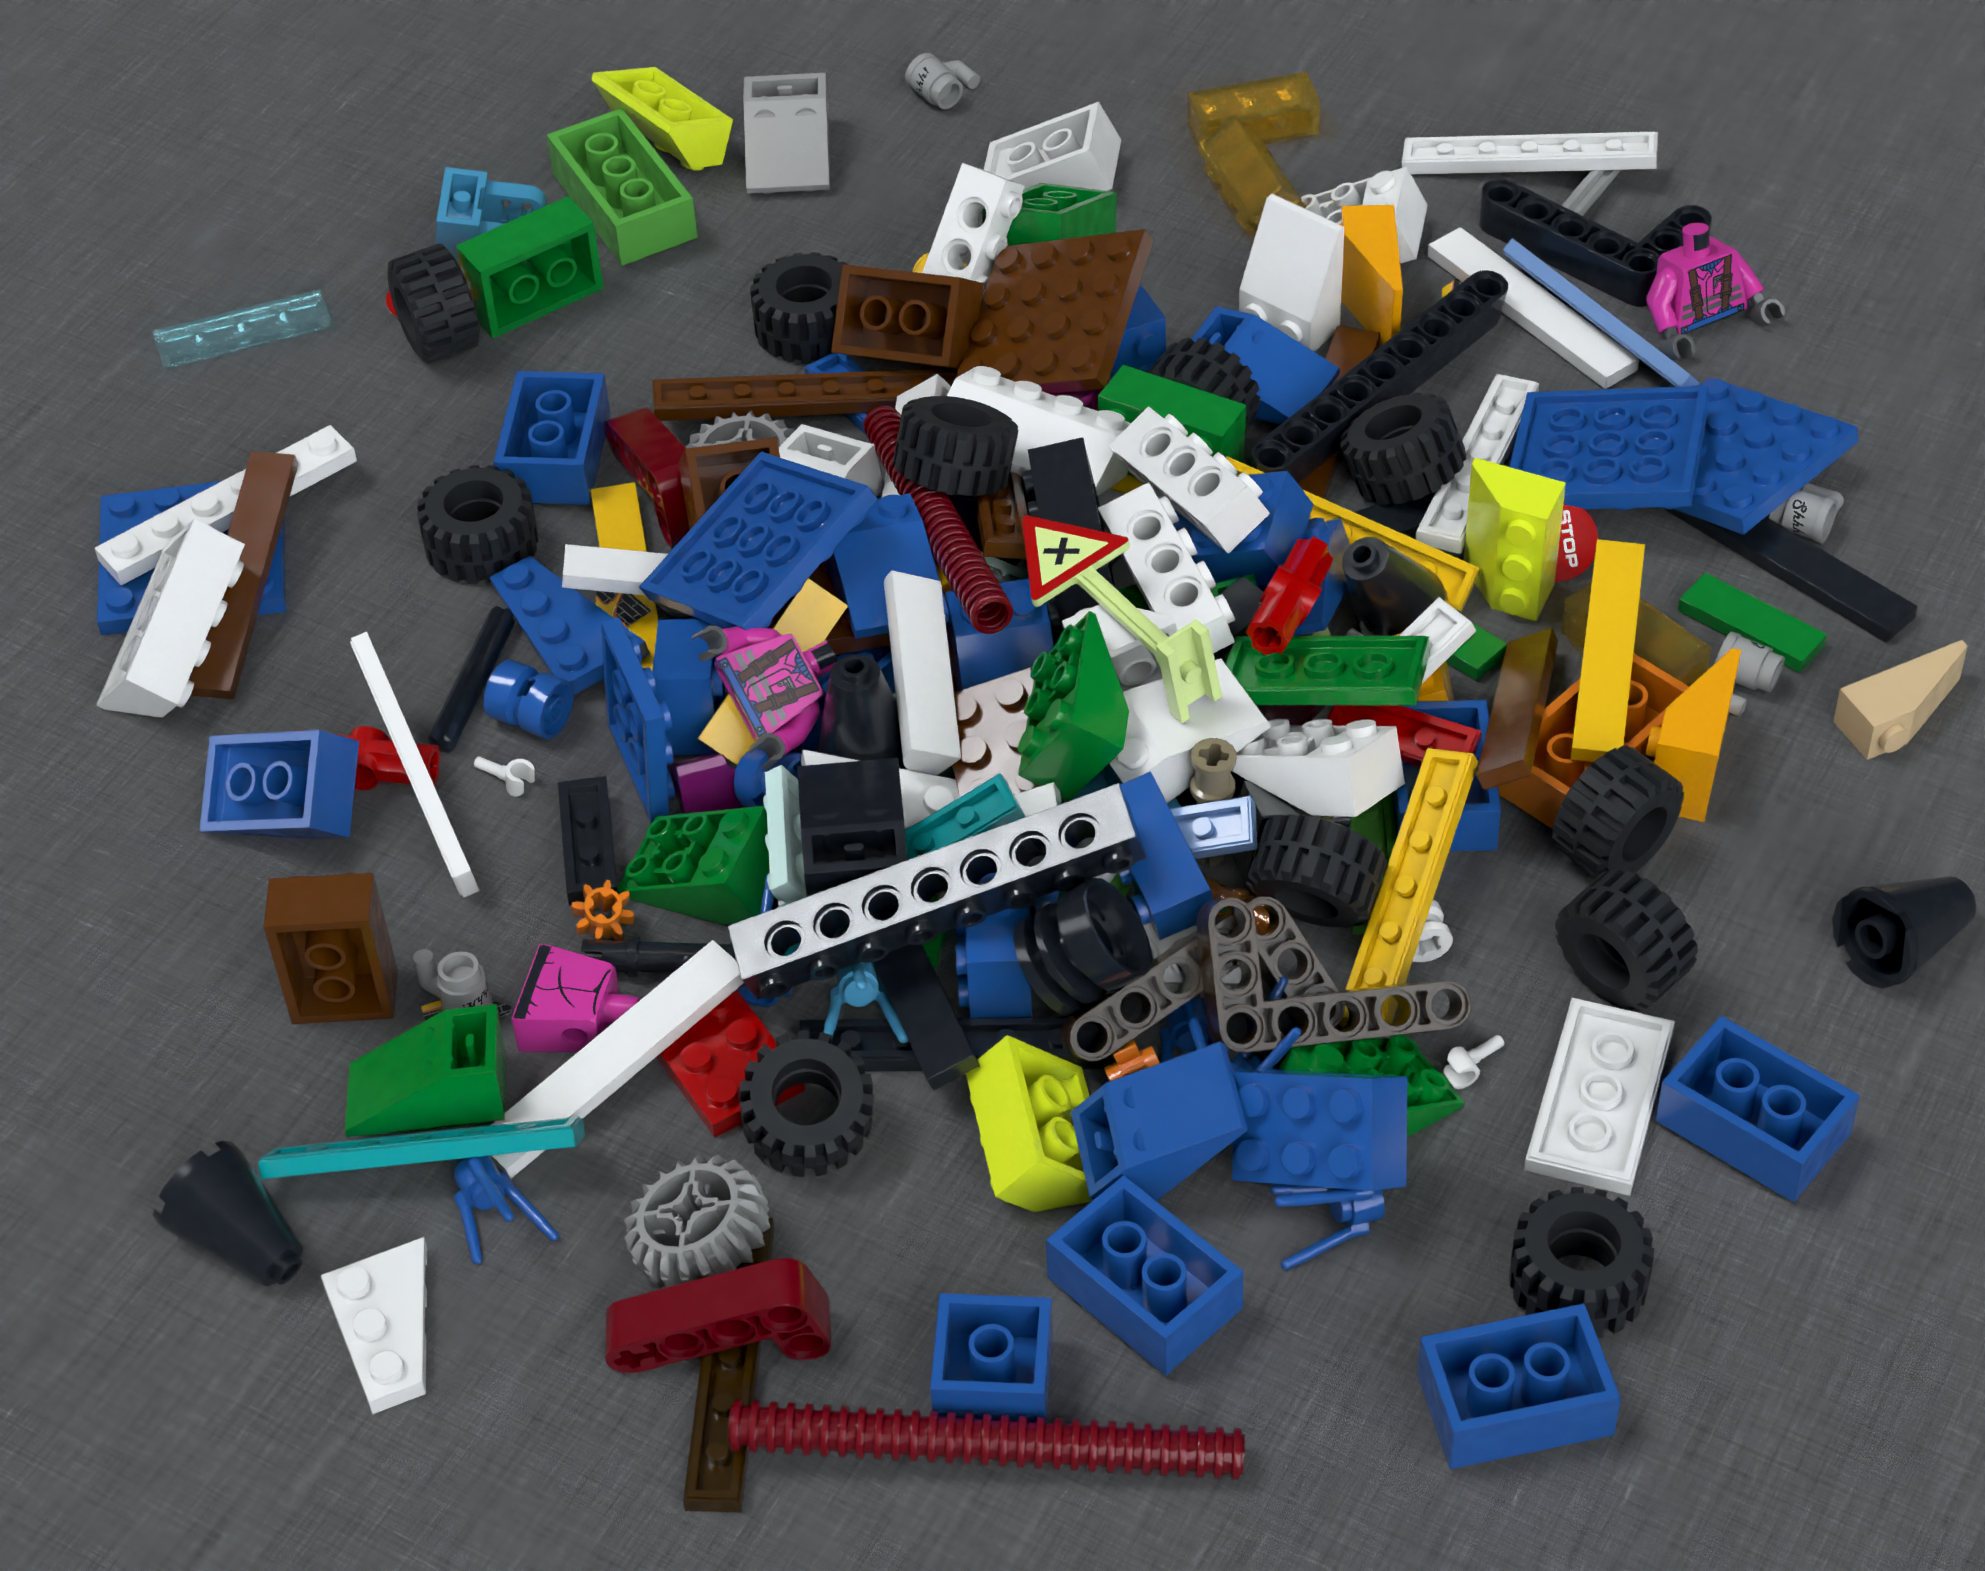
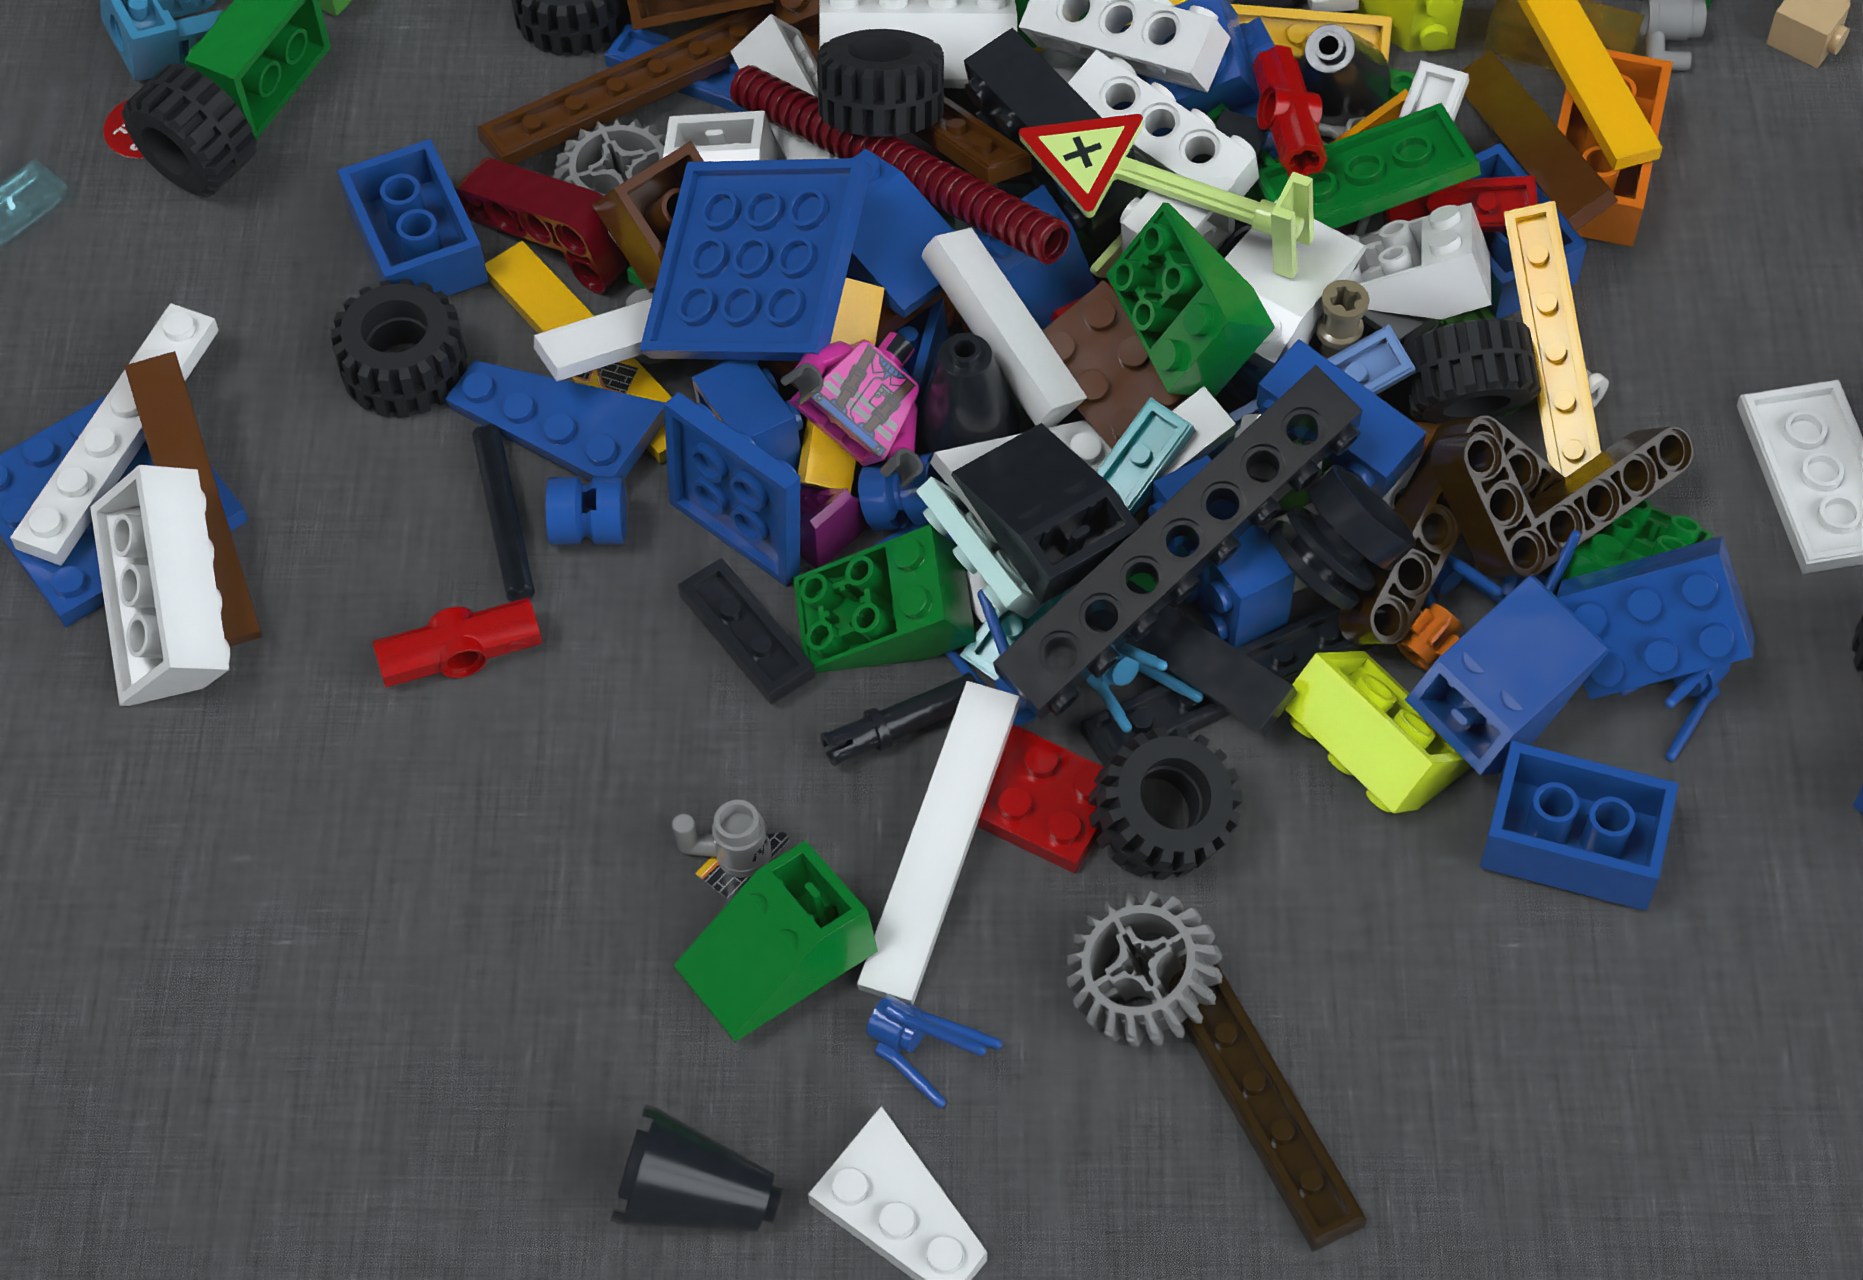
camera: 30 degrees left, 10 degrees up
(280, 785) = (399, 710): blue slope -> none
(331, 948) = (602, 856): reddish brown brick -> none
(414, 765) = (534, 628): white tile -> none
(422, 1147) = (823, 1019): teal tile -> none
(512, 773) = (621, 604): white hand -> none
(567, 1001) = (854, 802): dark pink torso -> none
(606, 900) = (835, 698): orange gear -> none
(720, 1313) = (1227, 1054): dark red beam -> none
(986, 1439) = (1545, 1051): dark red piece -> none
(992, 1356) = (1507, 973): blue brick -> none
(1462, 1064) = (1692, 500): white hand -> none
(1618, 813) = (1683, 206): black tyre -> none
(1626, 939) = (1772, 322): black tyre -> none
(1694, 732) = (1700, 113): light orange slope -> none

